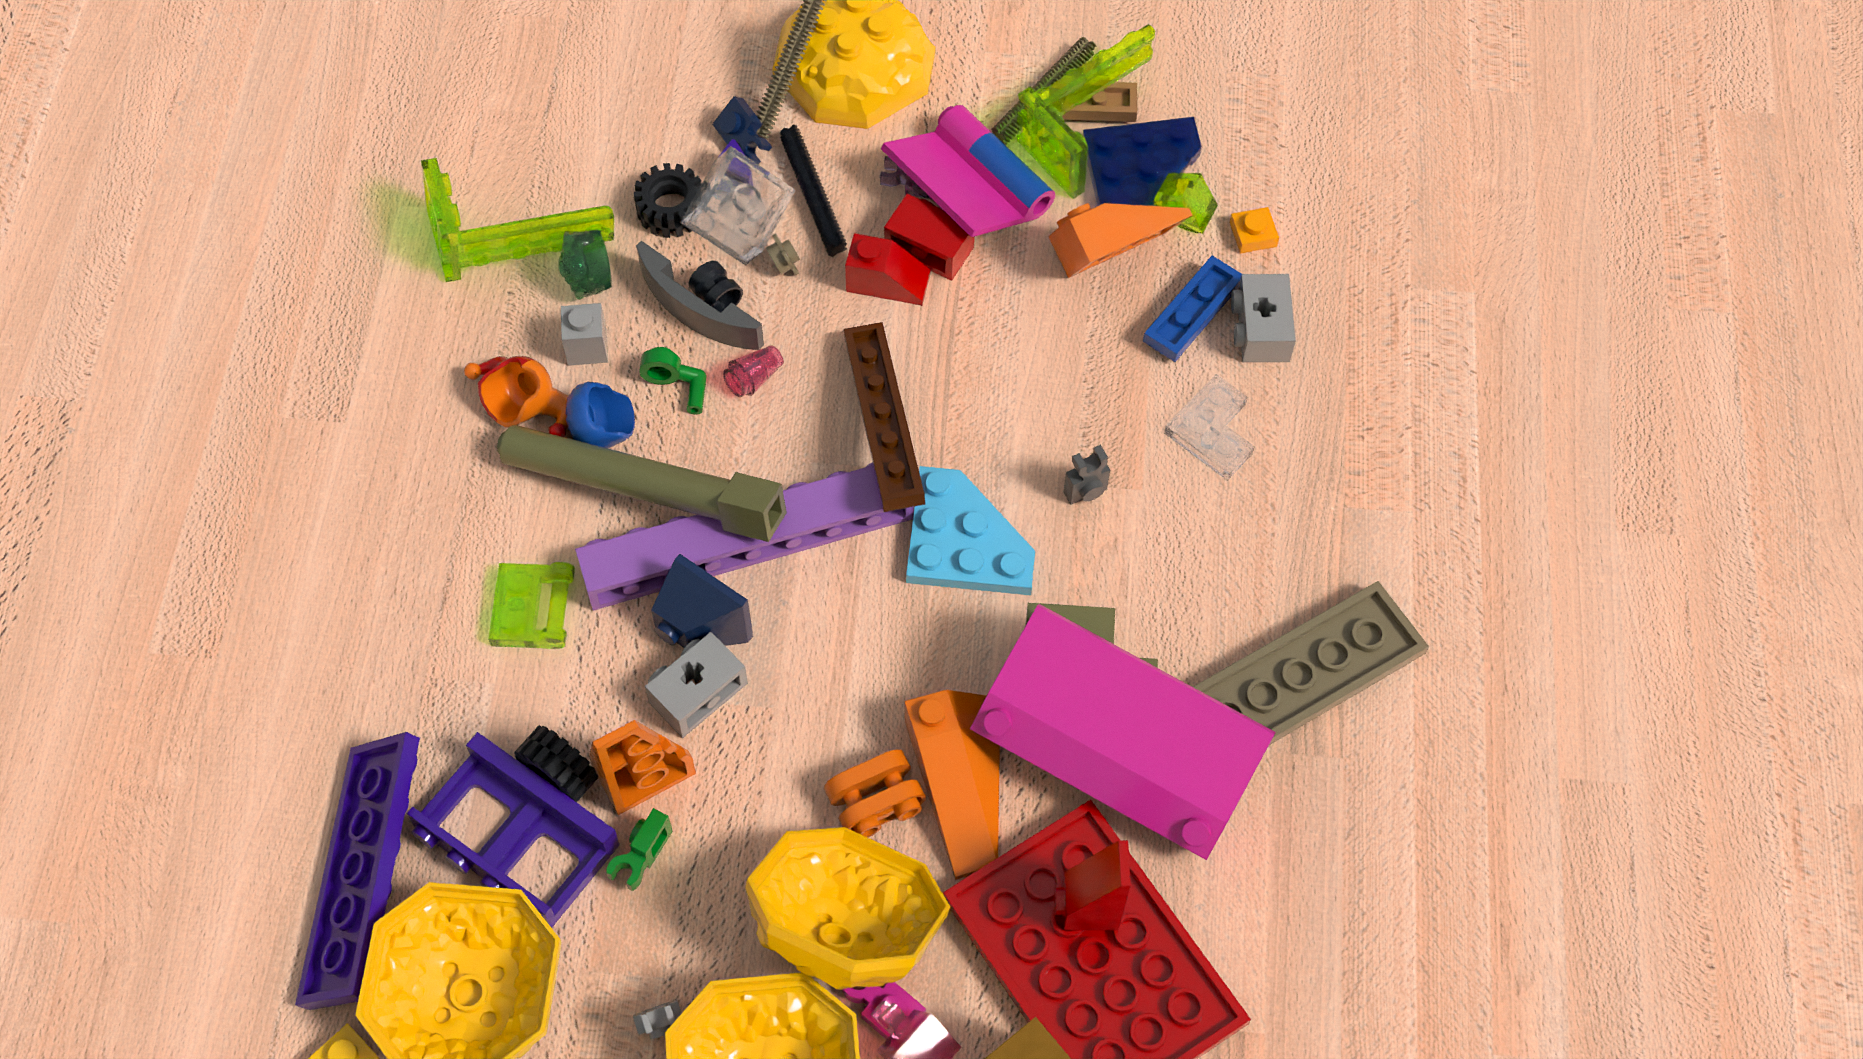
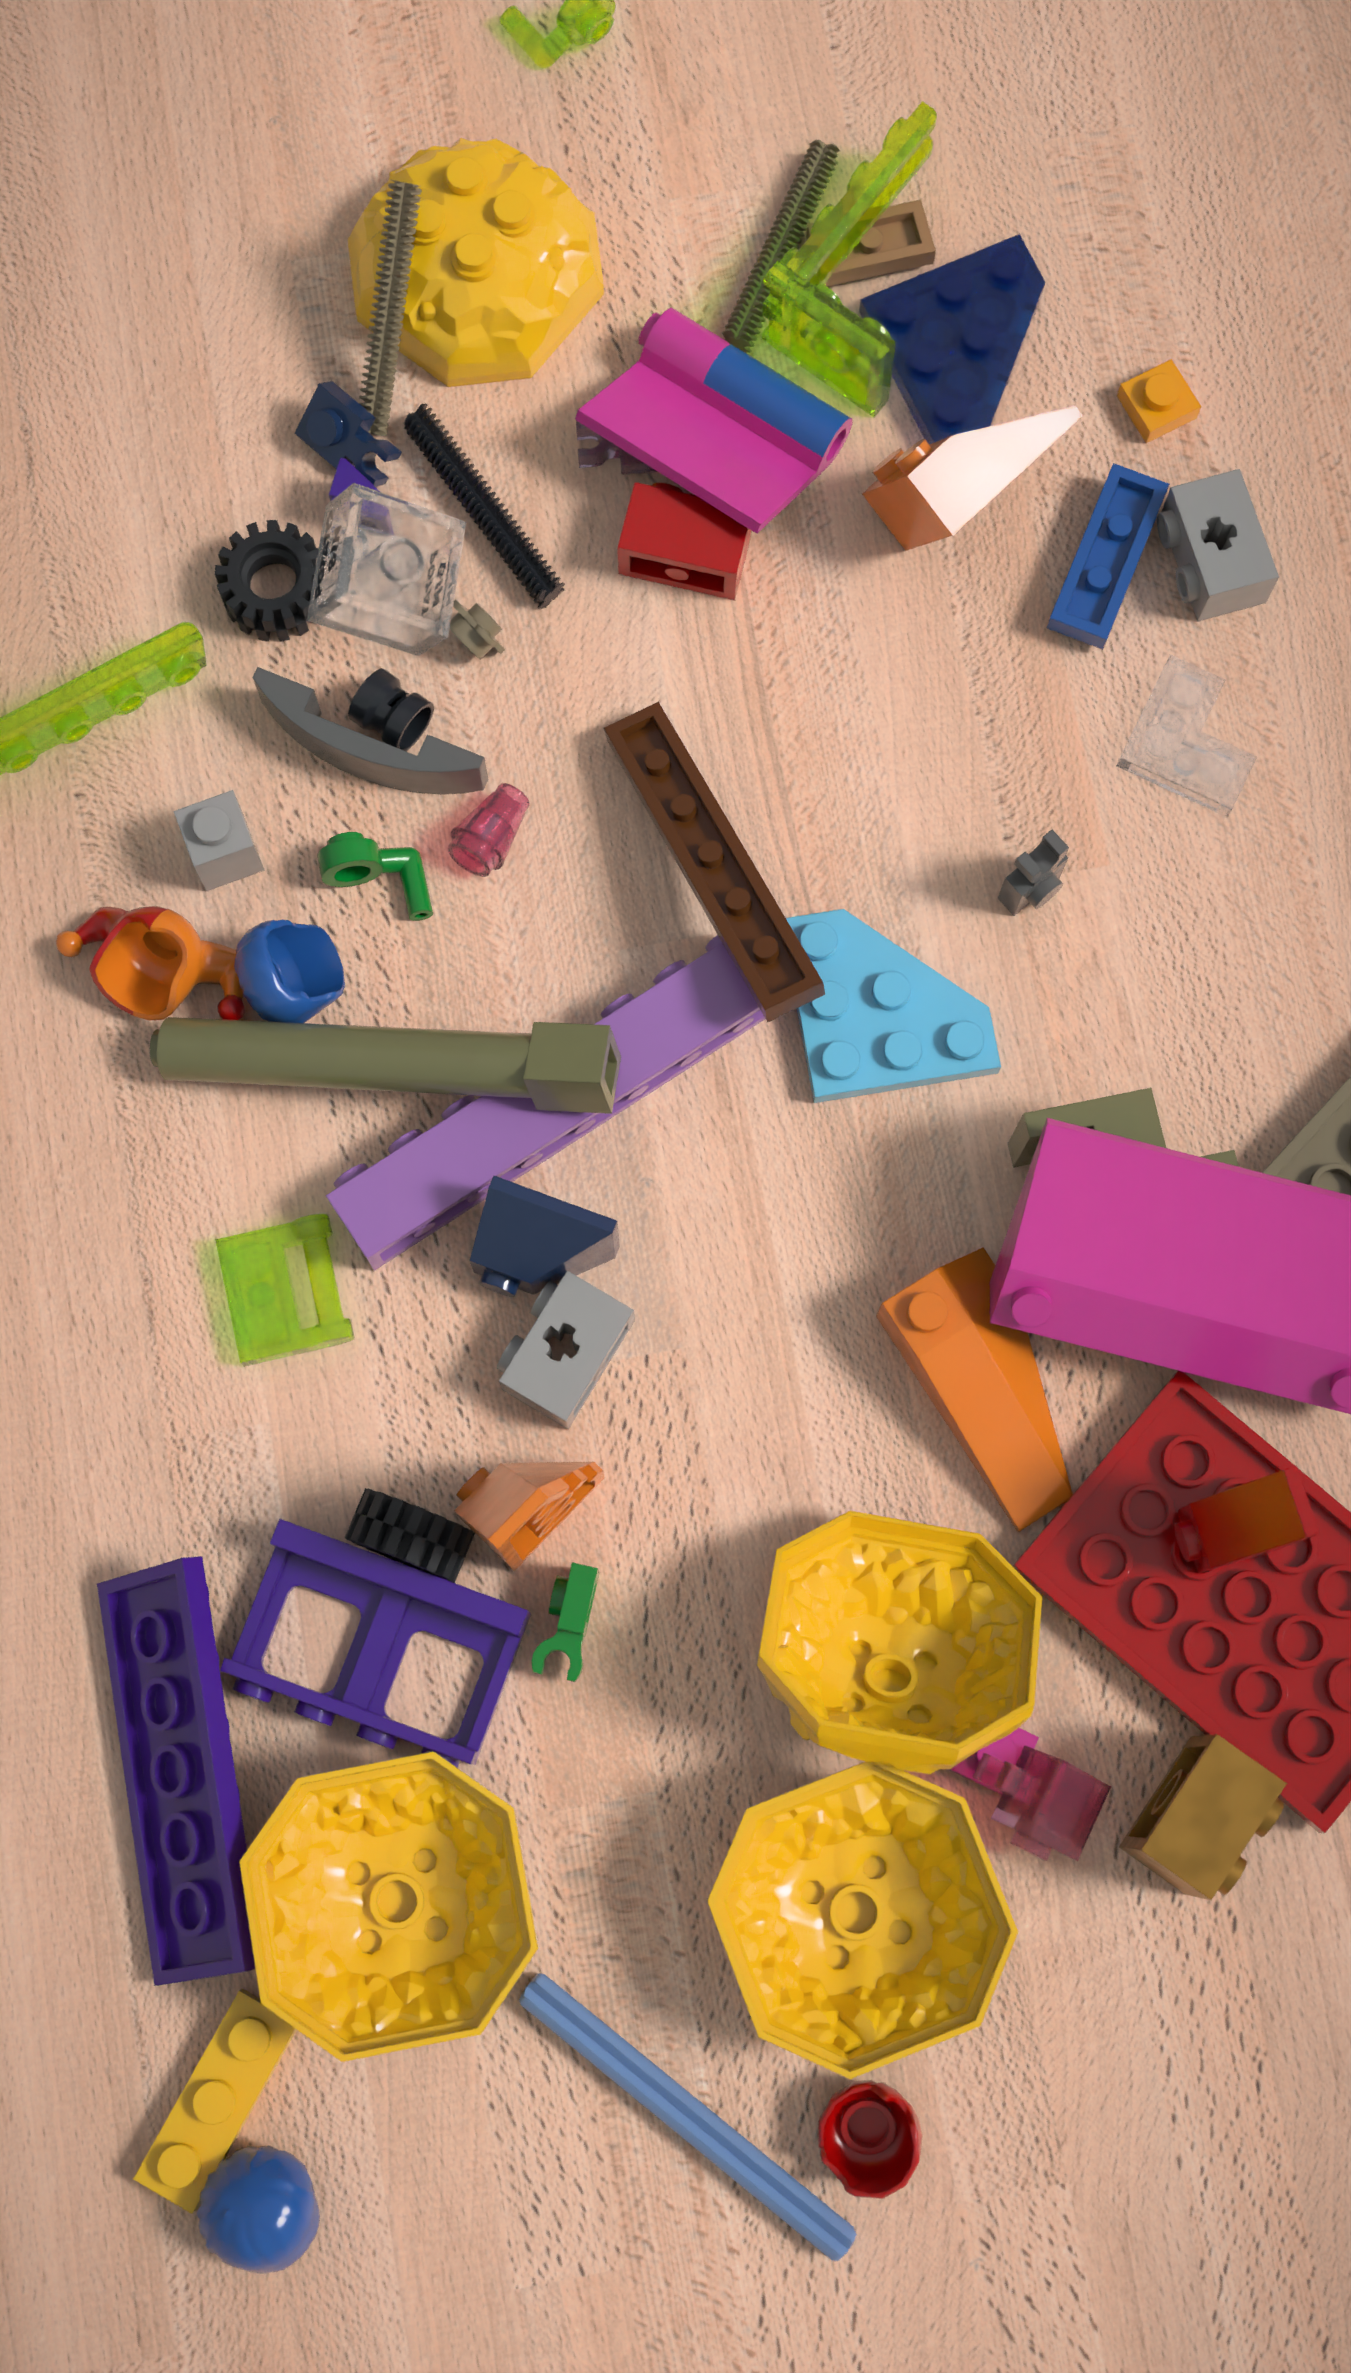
camera: 15 degrees left, 15 degrees up
(585, 263) = (181, 724): clear green hair -> none
(657, 1019) = (676, 1862): light grey plate -> none
(885, 271) = (637, 615): red slope -> none
(898, 801) = (914, 1445): orange brick -> none
(1190, 192) = (1047, 377): clear neon green brick -> none

